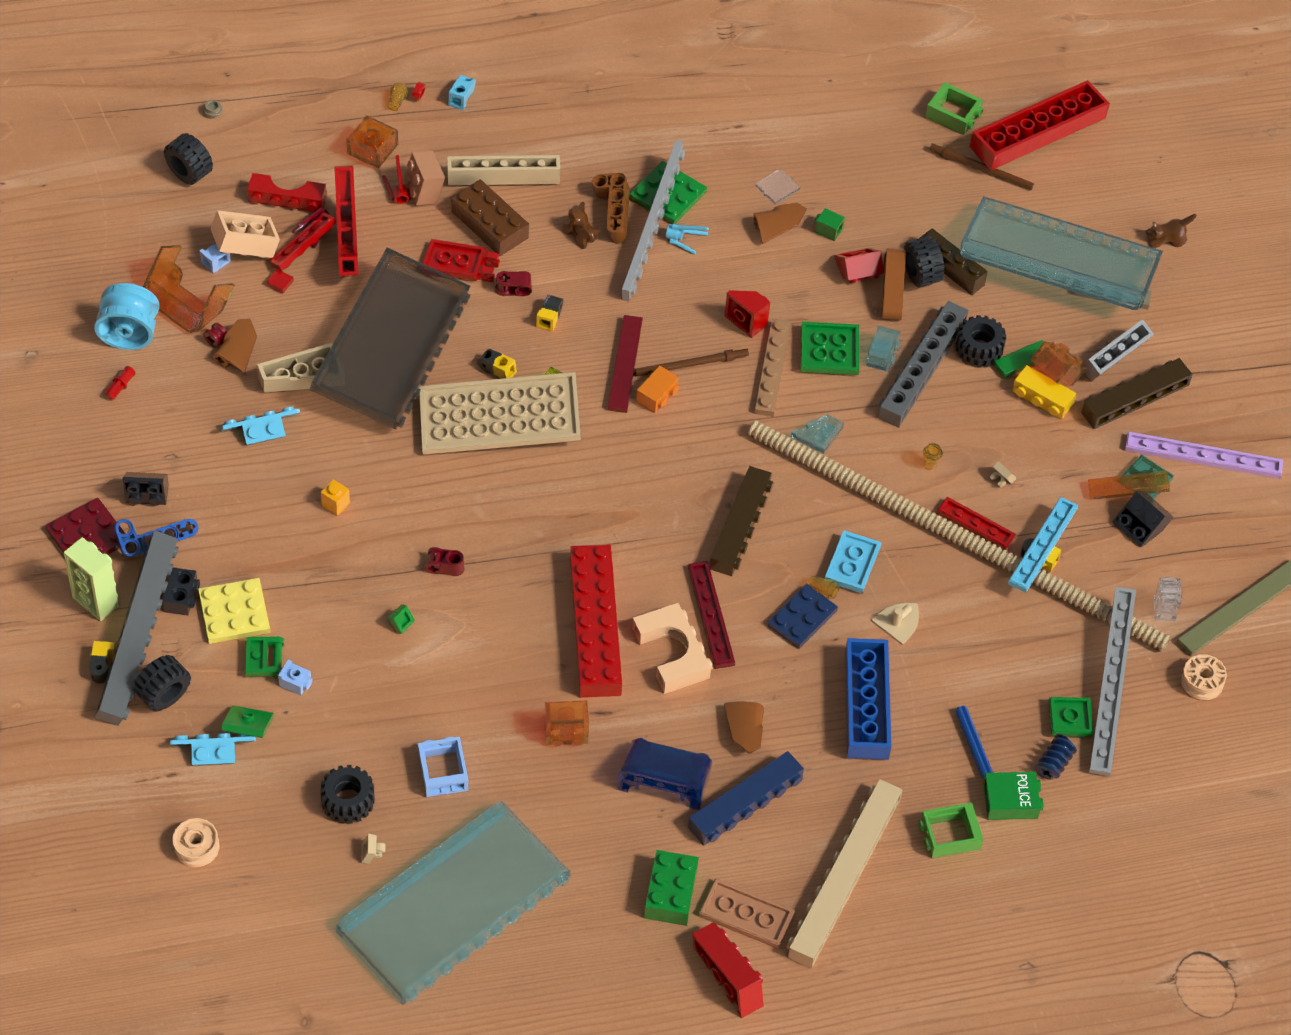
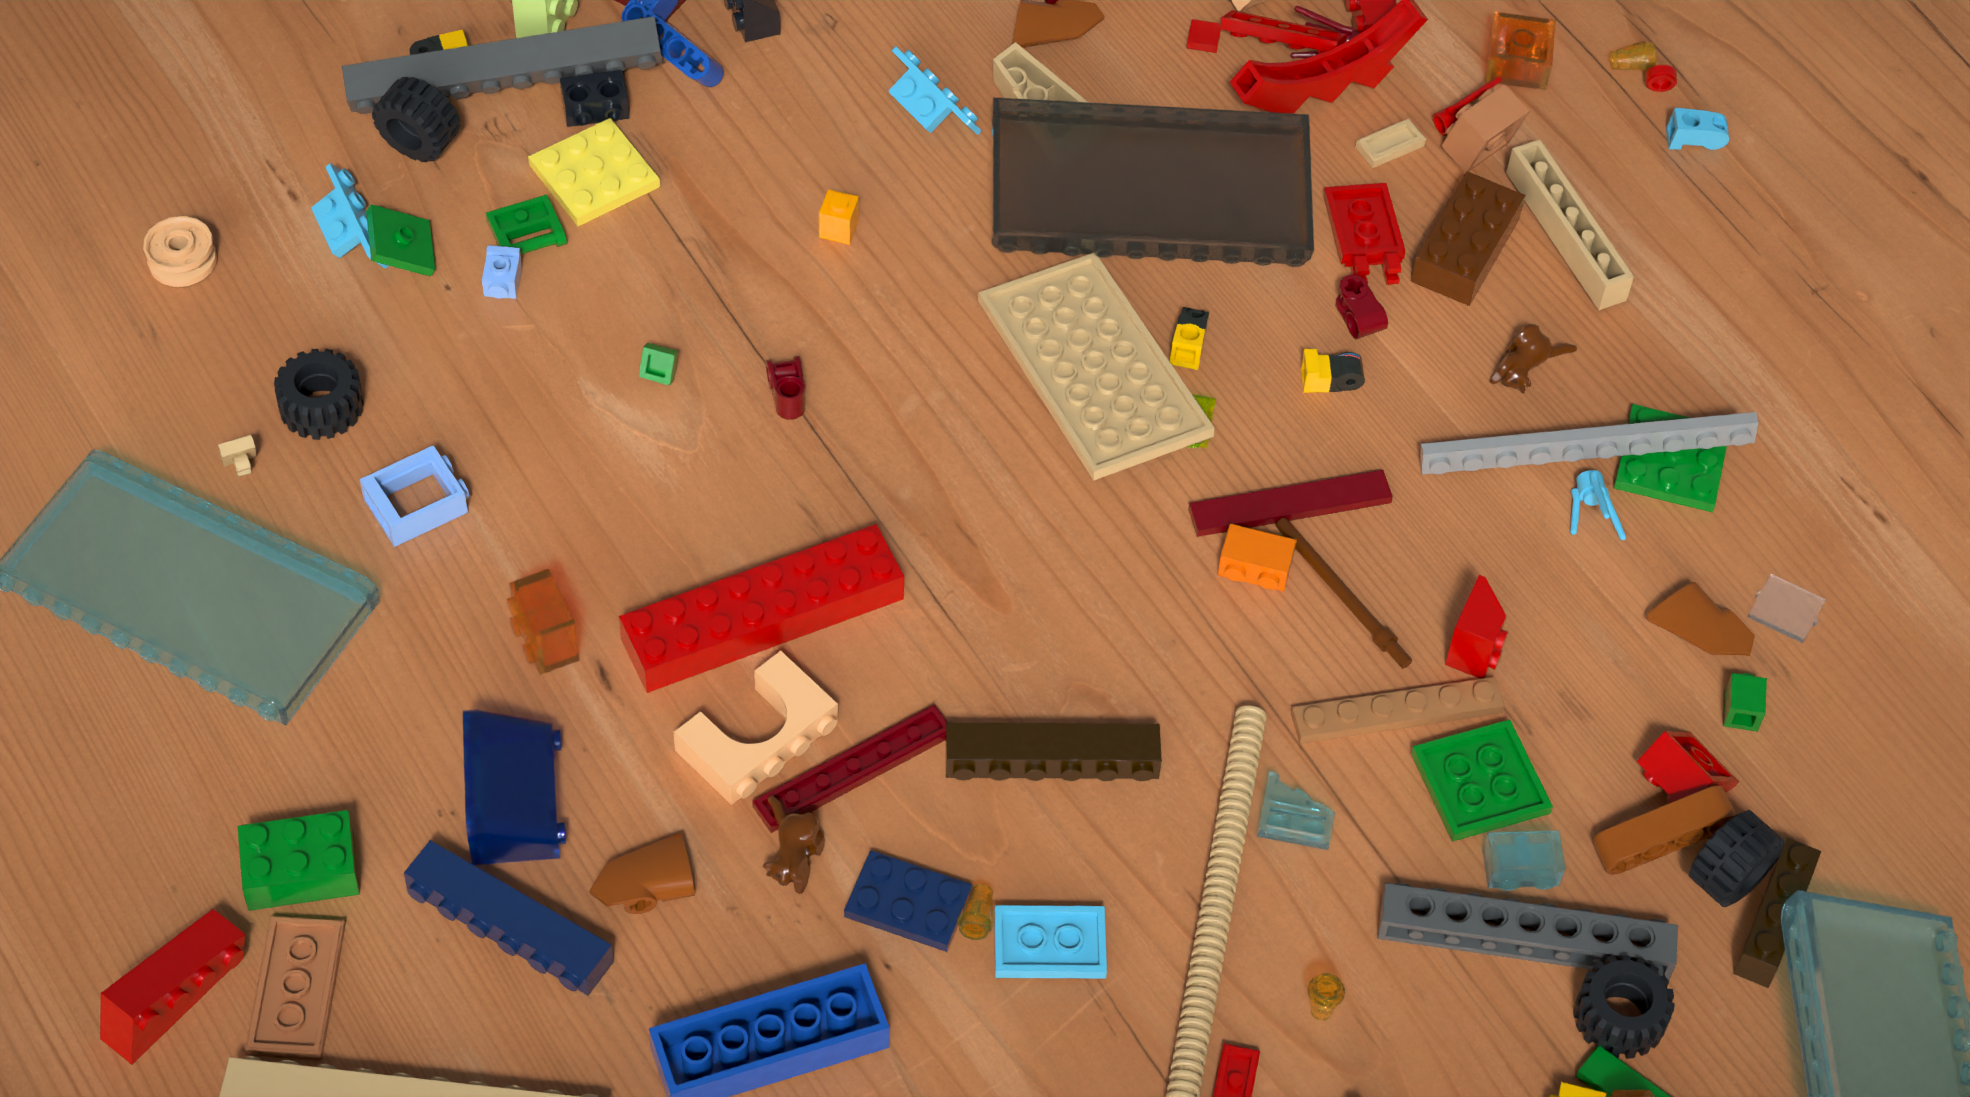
camera: 70 degrees right, 0 degrees up
(401, 227) = (1390, 143): none -> tan tile
(617, 190) = (1590, 393): dark orange beam -> none
(752, 650) = (798, 841): none -> reddish brown animal
(898, 620) = (967, 1052): tan shield -> none

